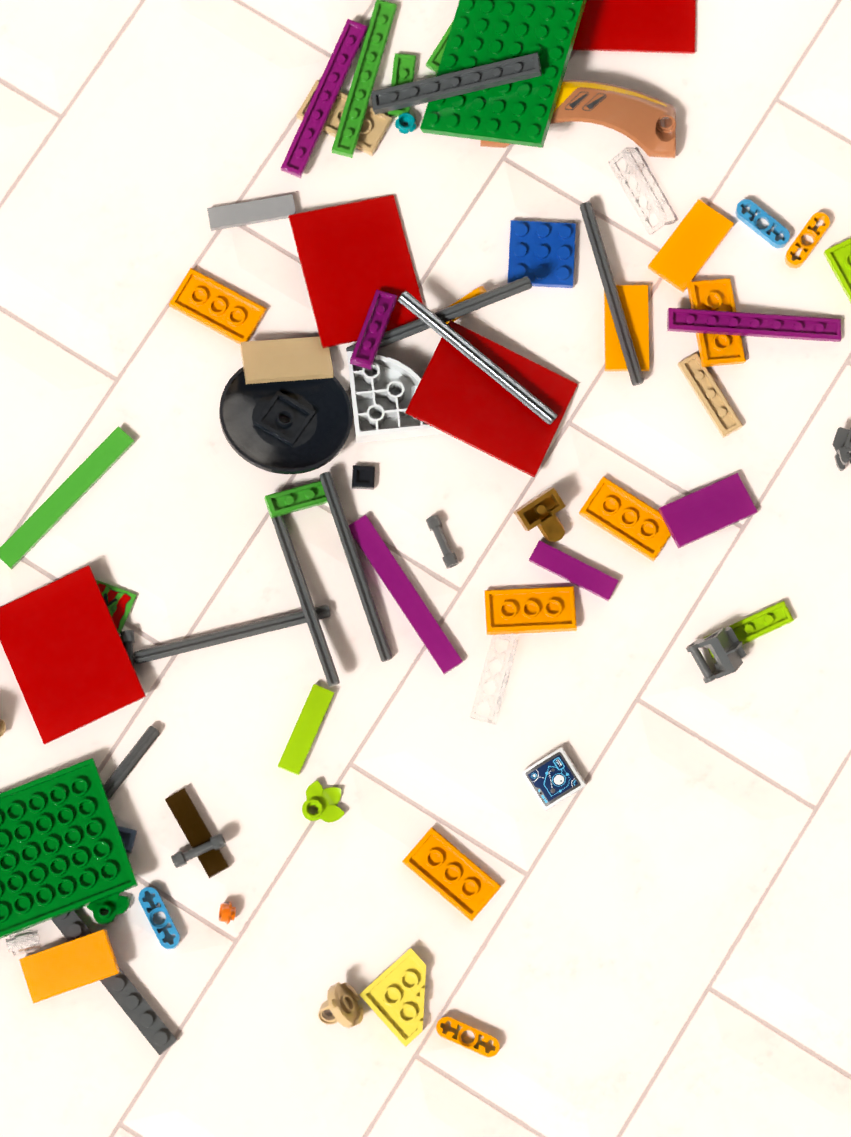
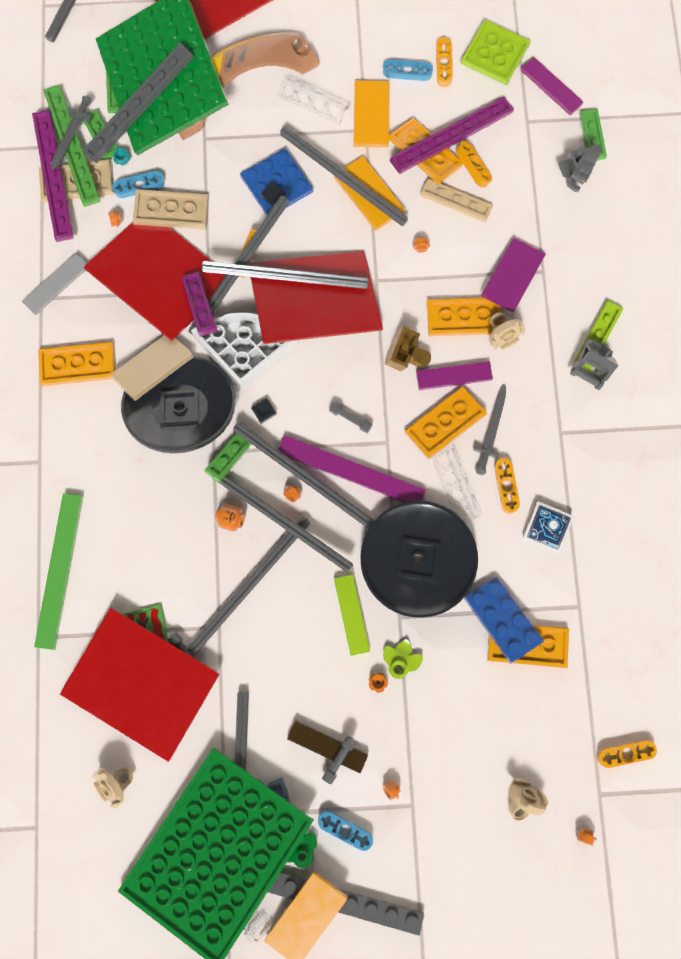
camera: 35 degrees left, 0 degrees up
(257, 558) = (230, 517): none -> orange head
(285, 802) = (378, 677): none -> orange plate
(333, 576) = (292, 493): none -> orange plate
(354, 183) = (114, 218): none -> orange plate
(373, 1081) = (586, 836): none -> orange plate
(375, 63) = (78, 116): none -> dark grey sword
(386, 163) = (150, 176): none -> dark azure beam
(398, 689) = (426, 531): none -> black dish
(399, 997) = (559, 761): light yellow plate -> none
(416, 211) = (170, 209): none -> tan tile
(443, 834) = (503, 620): none -> blue plate
(526, 266) = (272, 194): none -> black tile
(545, 695) = (514, 498): none -> light orange beam
(569, 650) = (487, 447): none -> dark grey sword
(638, 417) = (421, 245): none -> orange plate
(652, 564) = (506, 333): none -> tan tile
(759, 361) = (468, 156): none -> light orange beam

